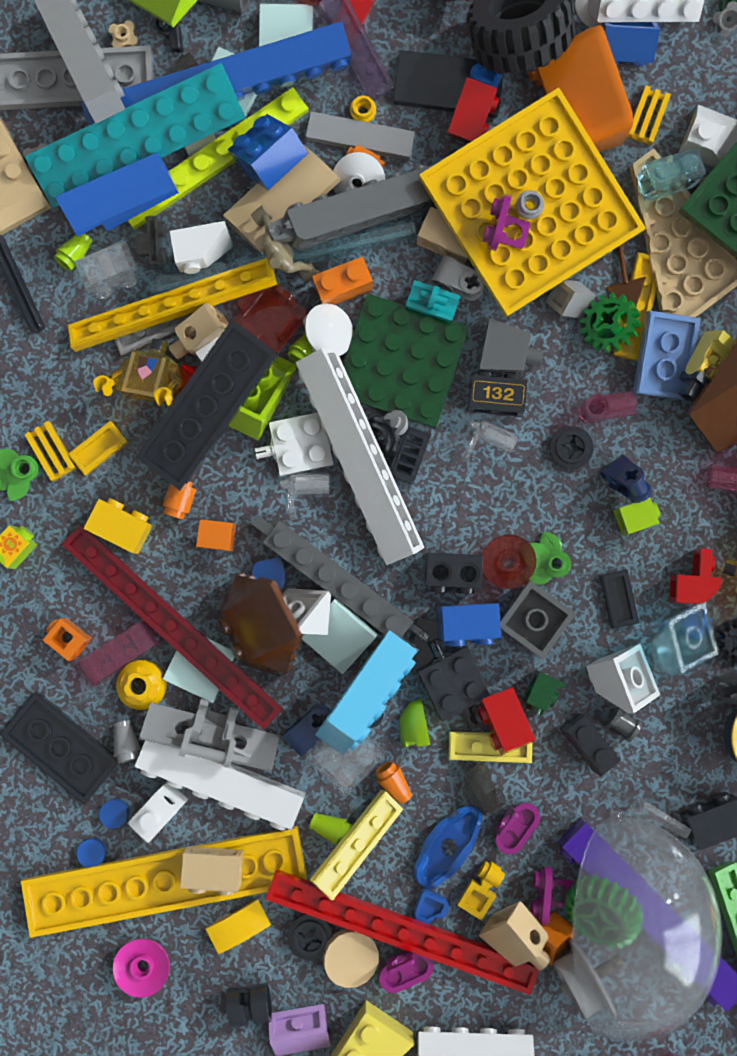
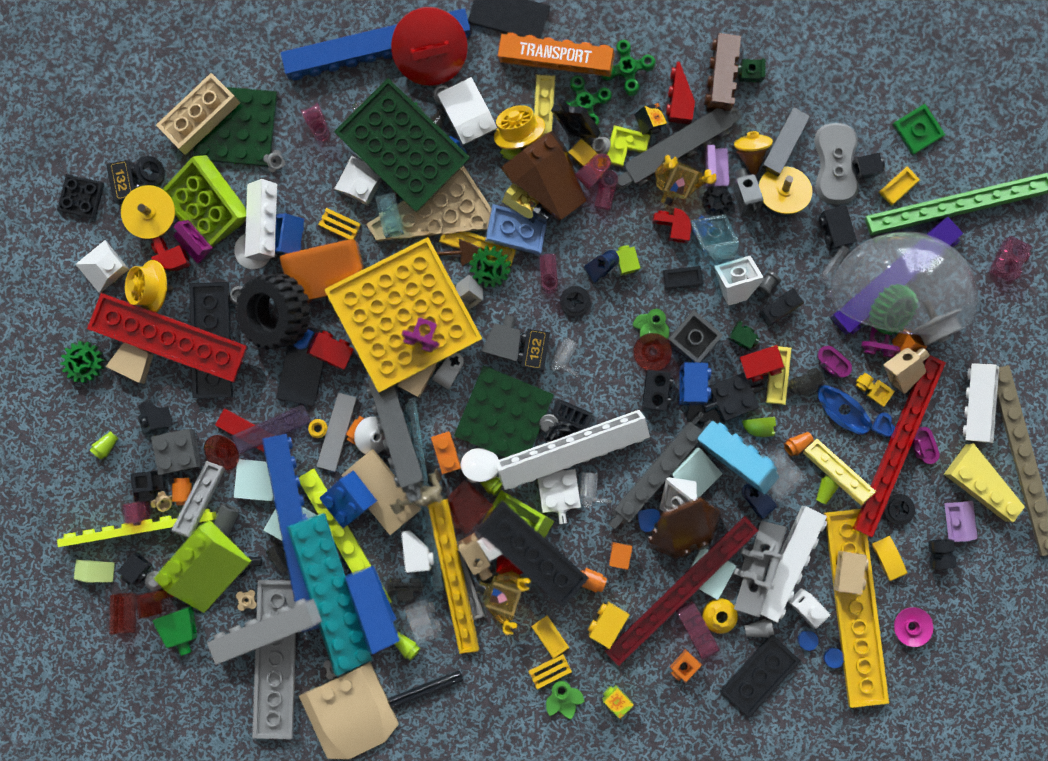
camera: 90 degrees left, 0 degrees up
(350, 958) = (915, 482): tan tile -> none
(432, 301) = (465, 389): teal hips -> none
(533, 197) = (407, 310): light grey plate -> none

